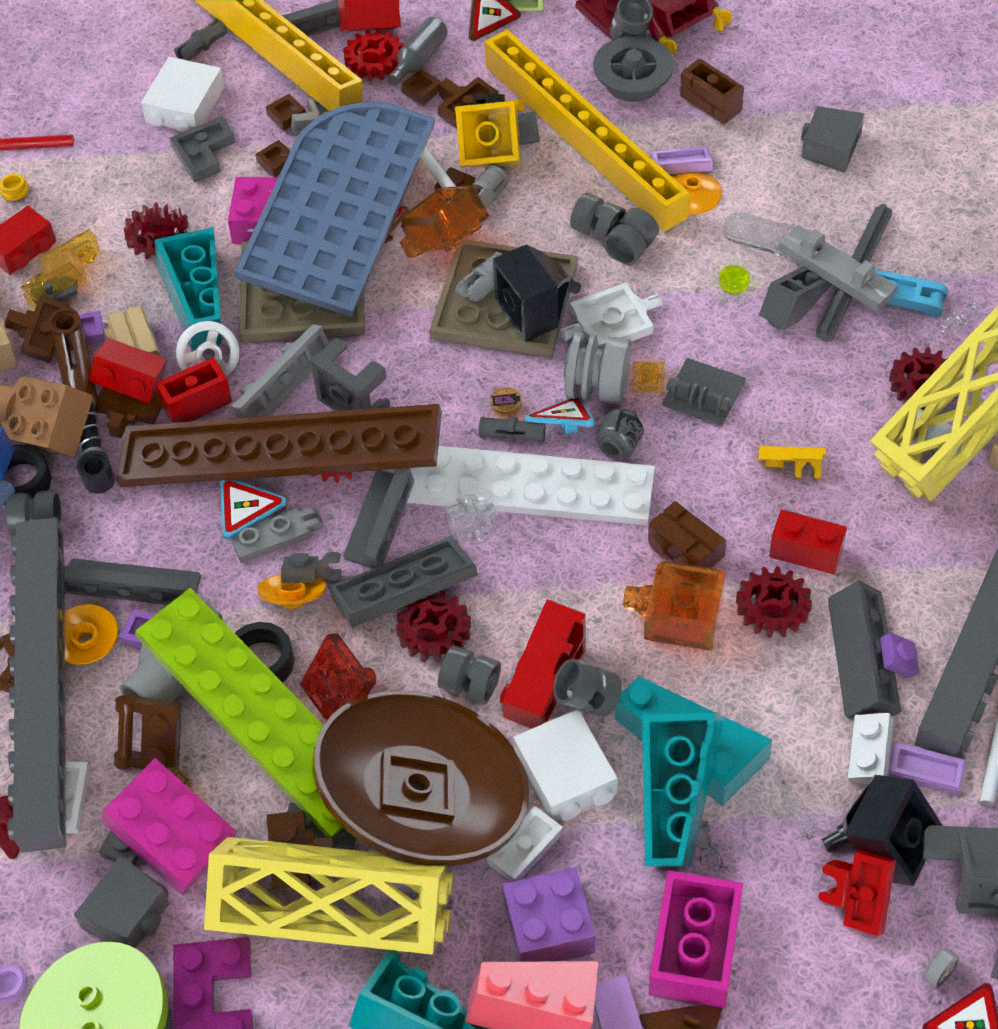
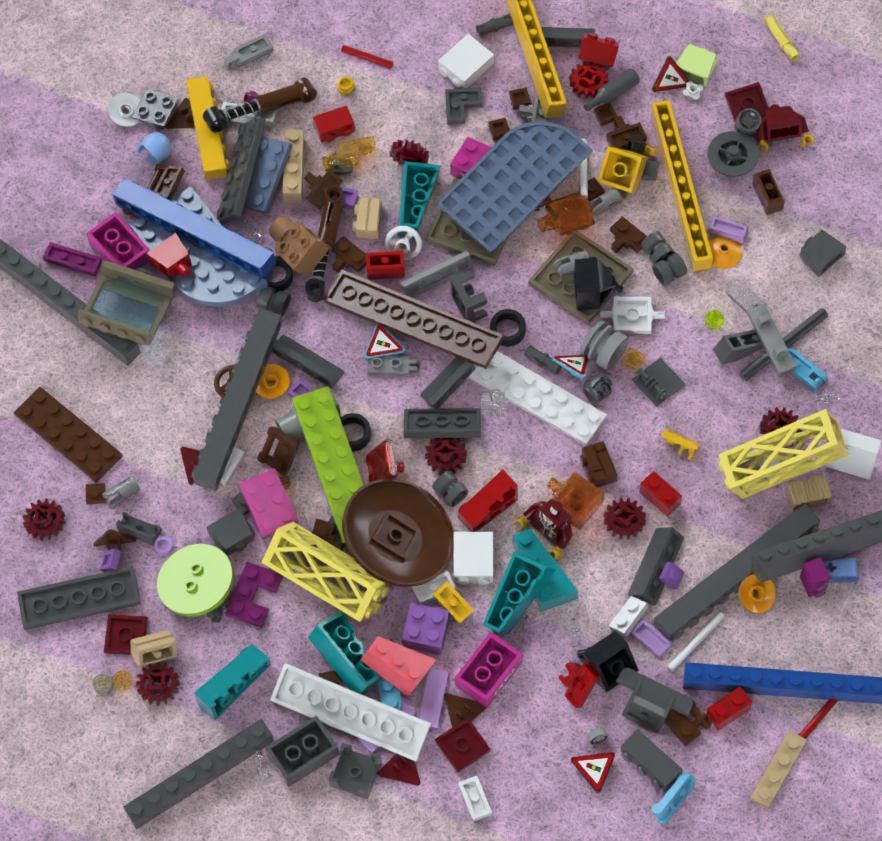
camera: 25 degrees right, 10 degrees up
(127, 370) = (355, 238): red brick -> none
(290, 595) = (384, 402): light orange dish -> none
(306, 568) = (397, 394): dark grey plate -> none
(437, 387) = (513, 315): none -> black tyre
(506, 402) = (549, 341): clear yellow tile -> none
(528, 18) = (692, 94): none -> white plate
(541, 222) = (626, 236): none -> reddish brown hinge
(570, 849) = (453, 601): none -> yellow plate
(587, 687) = (501, 523): dark grey wheel -> none
(664, 654) = (551, 522): none -> dark red torso

